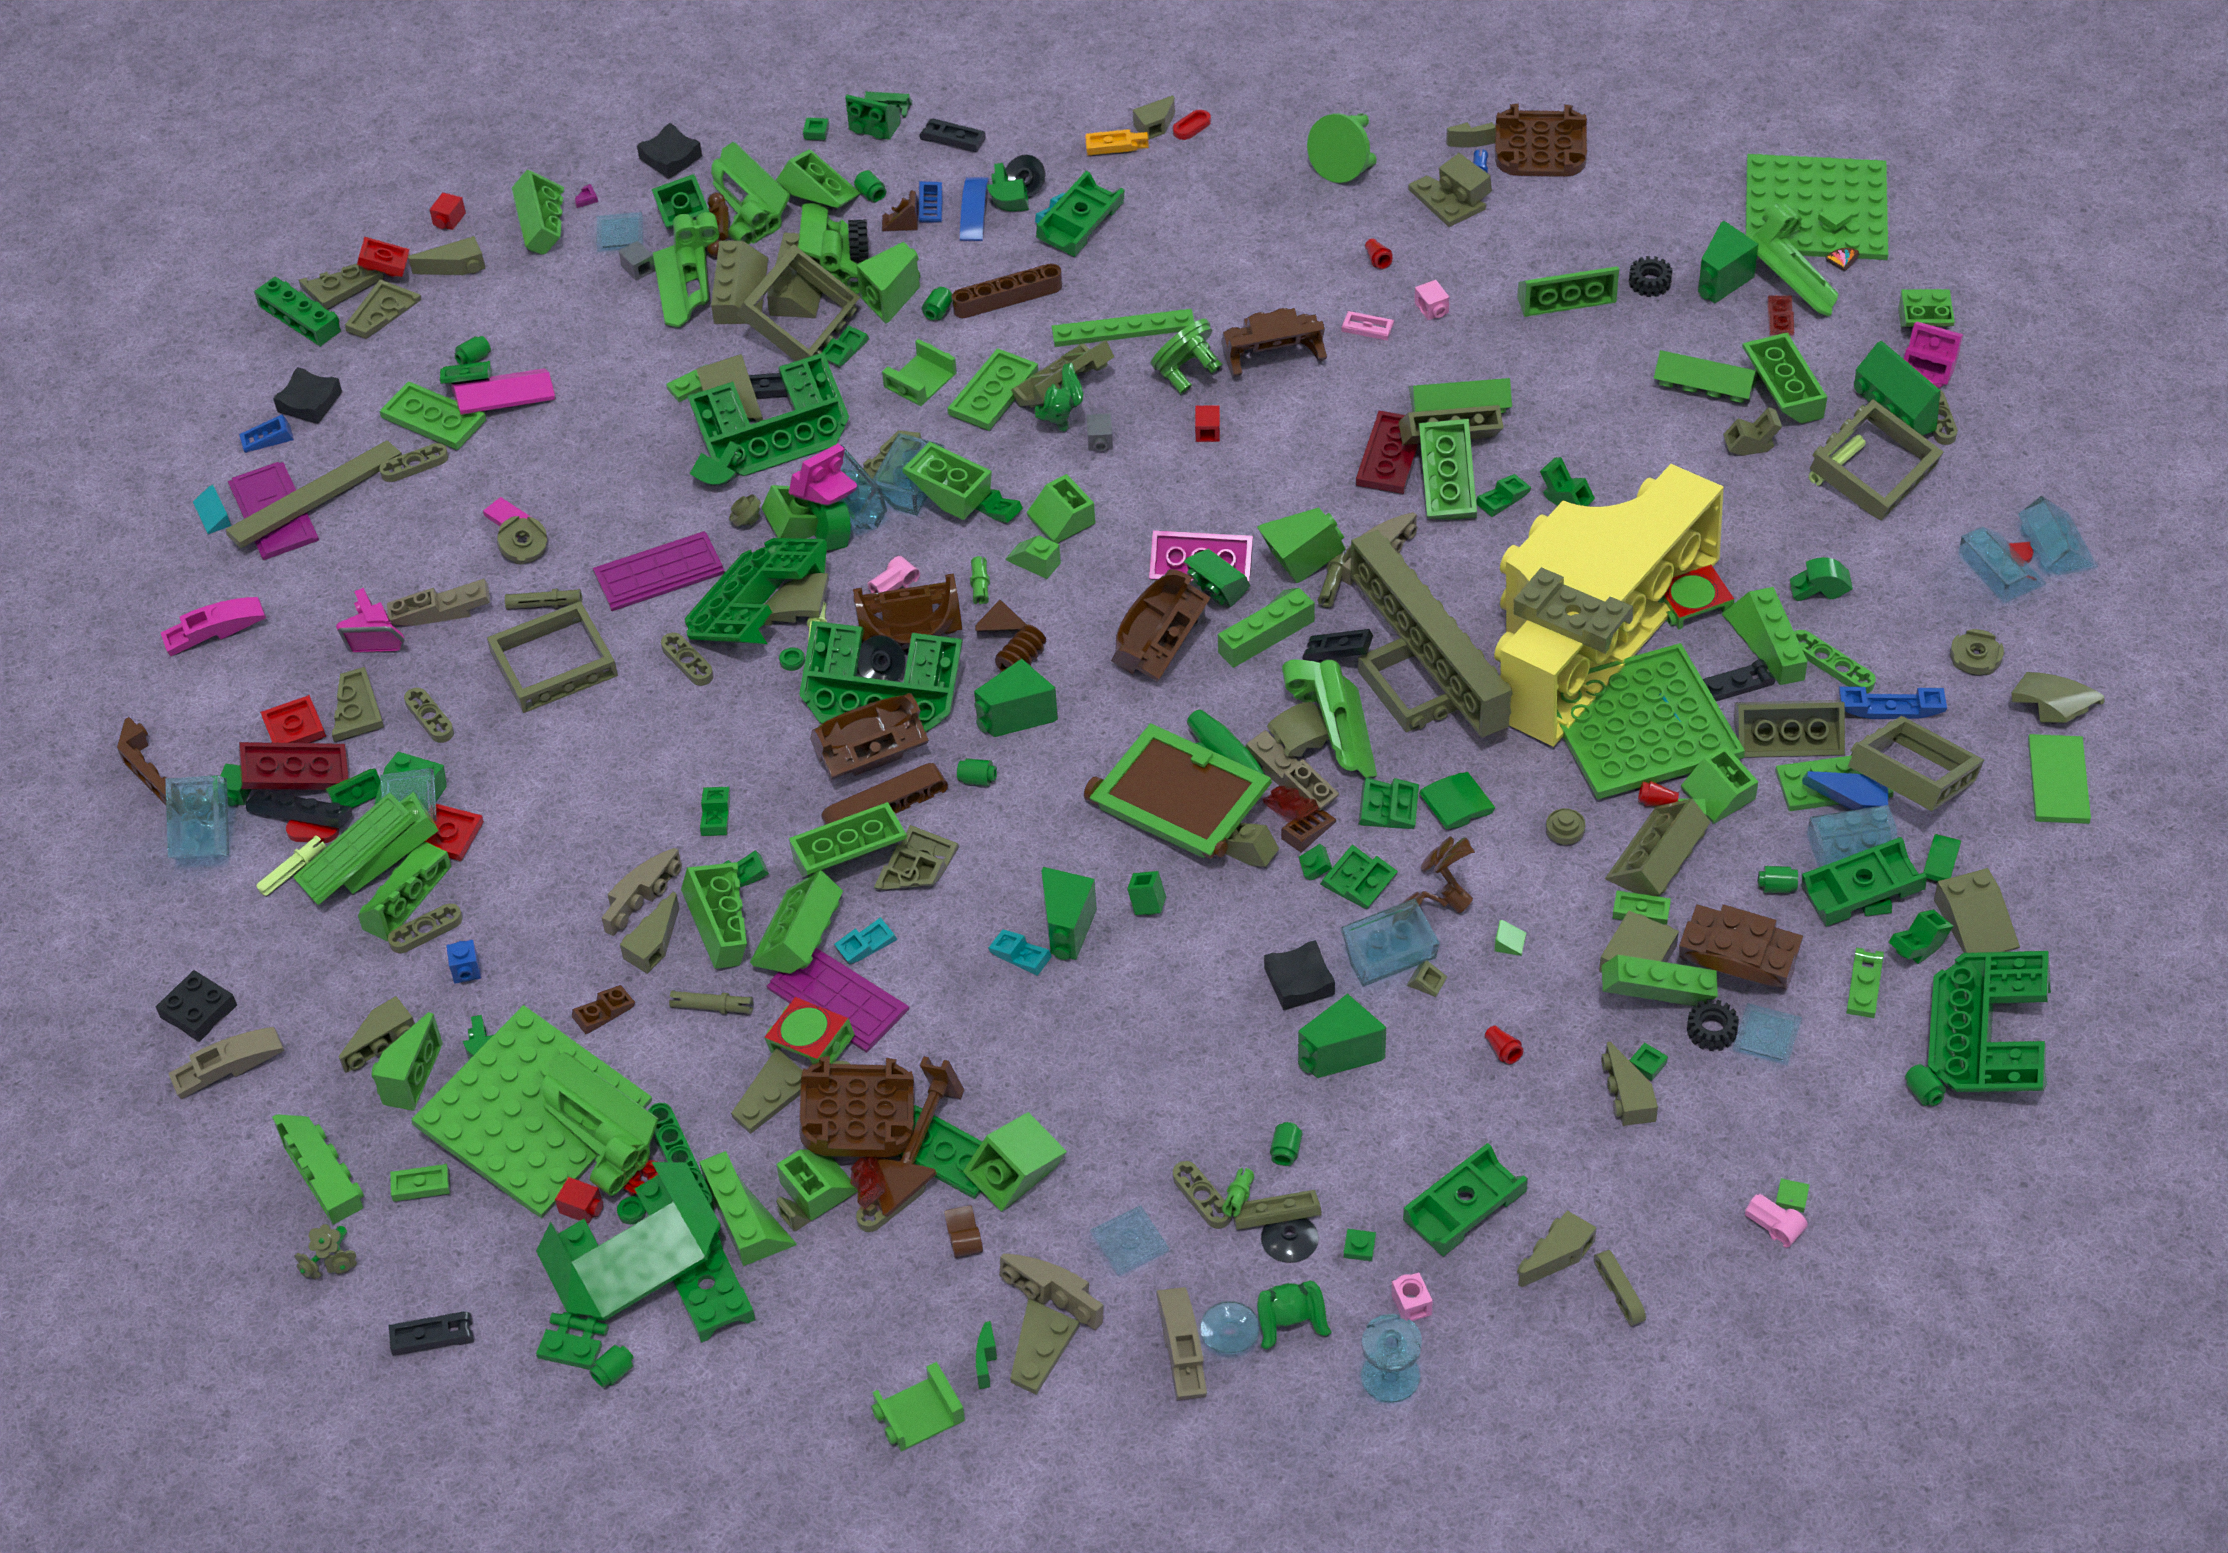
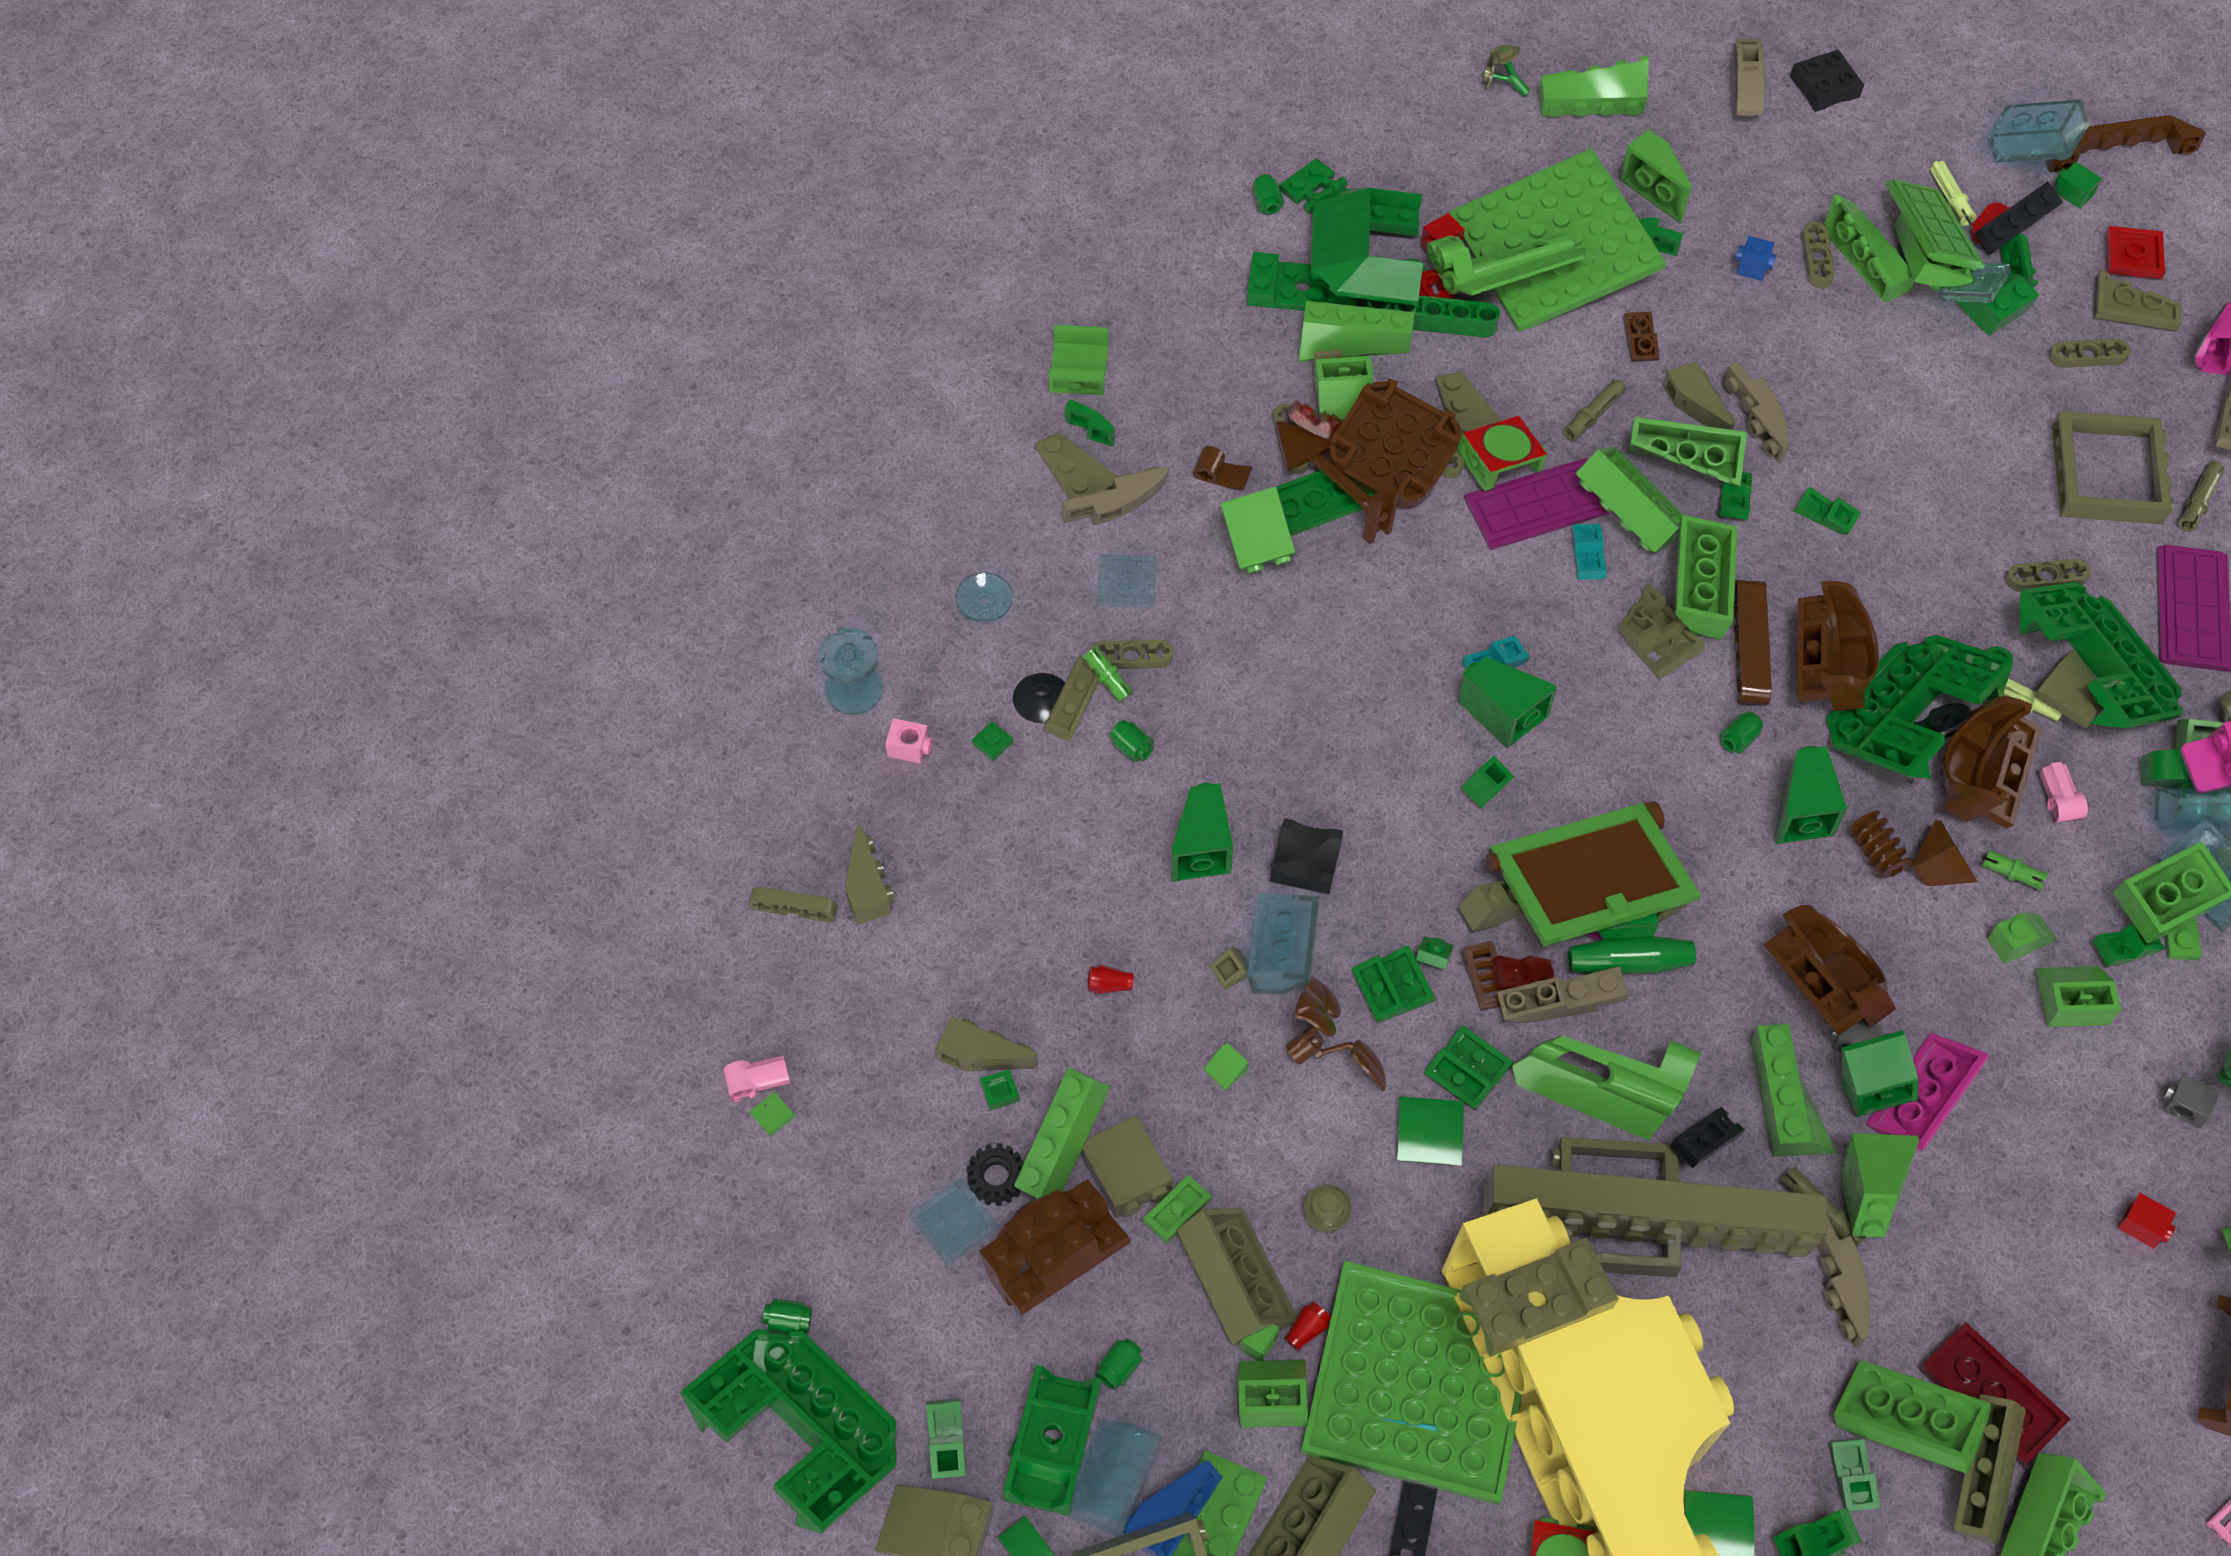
camera: 120 degrees right, 10 degrees up
(292, 765) = (2071, 224): dark red plate -> none
(376, 1034) = (1717, 181): olive slope -> none
(420, 1182) = (1537, 150): bright green plate -> none
(430, 1333) = (1384, 105): black plate -> none
(456, 830) = (1922, 310): red plate -> none
(1182, 1342) = (997, 552): dark tan slope -> none
(1291, 1305) = (969, 643): green hair -> none
(1300, 728) = (1611, 1028): olive slope -> none
(1445, 1218) = (976, 866): green piece -> none
(1865, 983) = (942, 1357): bright green plate -> none

